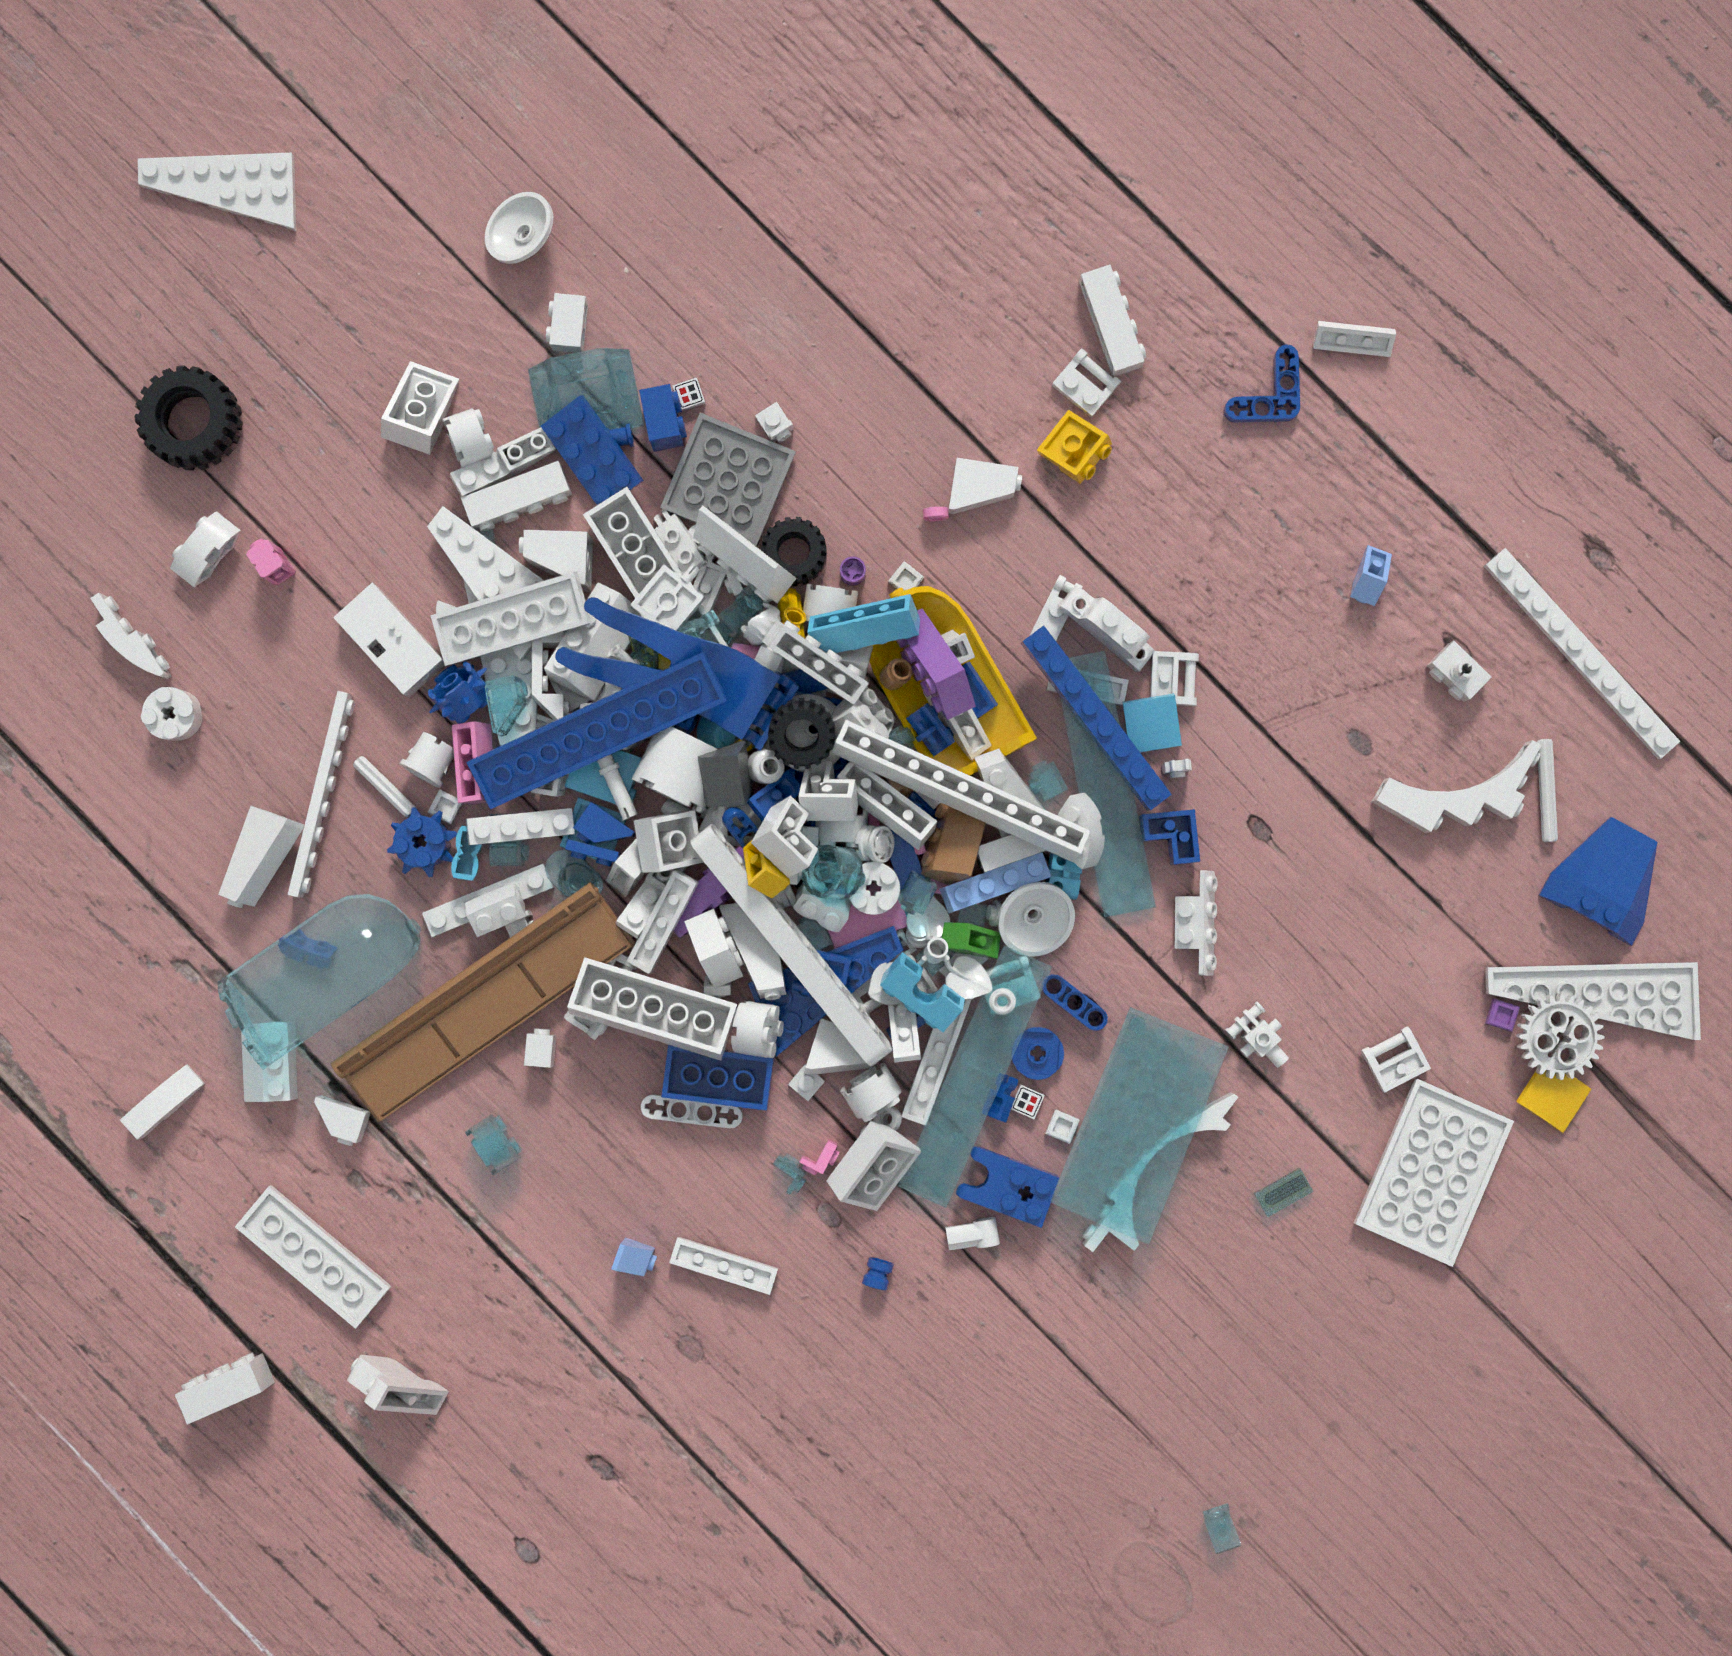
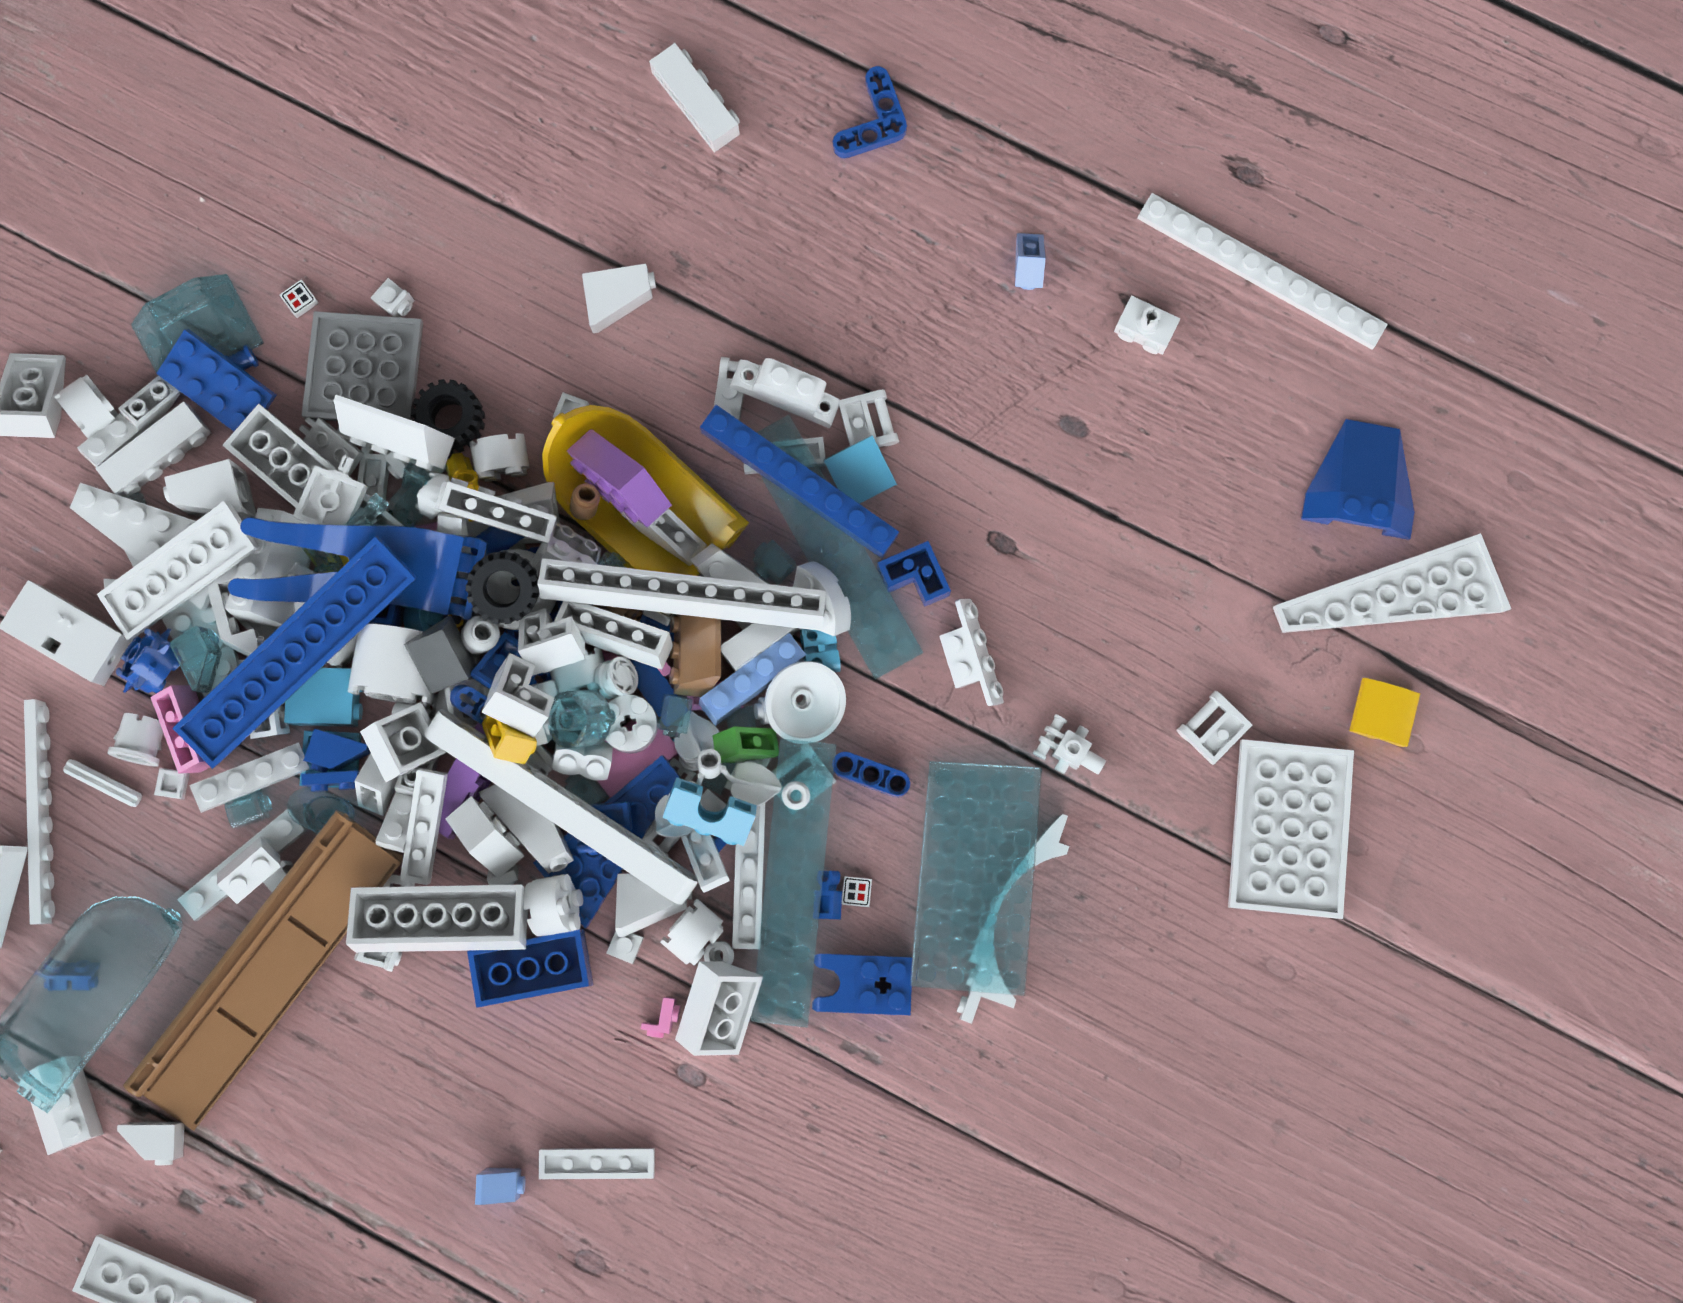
camera: 15 degrees left, 5 degrees down
(421, 857) = (140, 821): blue brick -> none
(465, 862) = (204, 831): medium azure brick -> none
(493, 1143) = (317, 1113): clear light blue brick -> none
(519, 227) = (79, 189): white dish -> none
(540, 1048) = (338, 999): white brick -> none
(567, 323) = (156, 265): white brick -> none
(610, 771) = (324, 690): white pin -> none
(661, 417) = (276, 326): blue brick -> none
(691, 1112) = (516, 1013): white beam -> none
(790, 1166) = (632, 1036): clear light blue bracket -> none
(849, 568) = (509, 415): medium lavender wheel -> none
(866, 624) = (537, 459): medium azure brick -> none
(877, 1275) = (759, 1119): blue wheel -> none
(931, 729) = (638, 546): blue hips -> none
(935, 514) = (579, 336): bright pink tile -> none
(959, 645) = (641, 454): white brick -> none
(980, 1233) = (850, 1043): white piece -> none
(982, 697) = (682, 502): blue tile -> none
(1048, 1063) = (865, 846): blue plate -> none
(1062, 1126) = (900, 905): white tile -> none
(1075, 447) = (698, 228): yellow plate -> none
(1080, 389) = (686, 173): white plate -> none
(1176, 768) = (898, 507): white plate -> none
(1221, 1528) = (1198, 1270): clear light blue bracket -> none
(1283, 1192) = (1146, 899): clear light blue tile -> none
(1354, 338) = (937, 41): white plate -> none
(1496, 794) = (1157, 468): white arch -> none
(1502, 1015) = (1306, 649): medium lavender tile -> none
(1540, 1023) = (1394, 656): white gear -> none
(1547, 791) = (1274, 413): white axle -> none

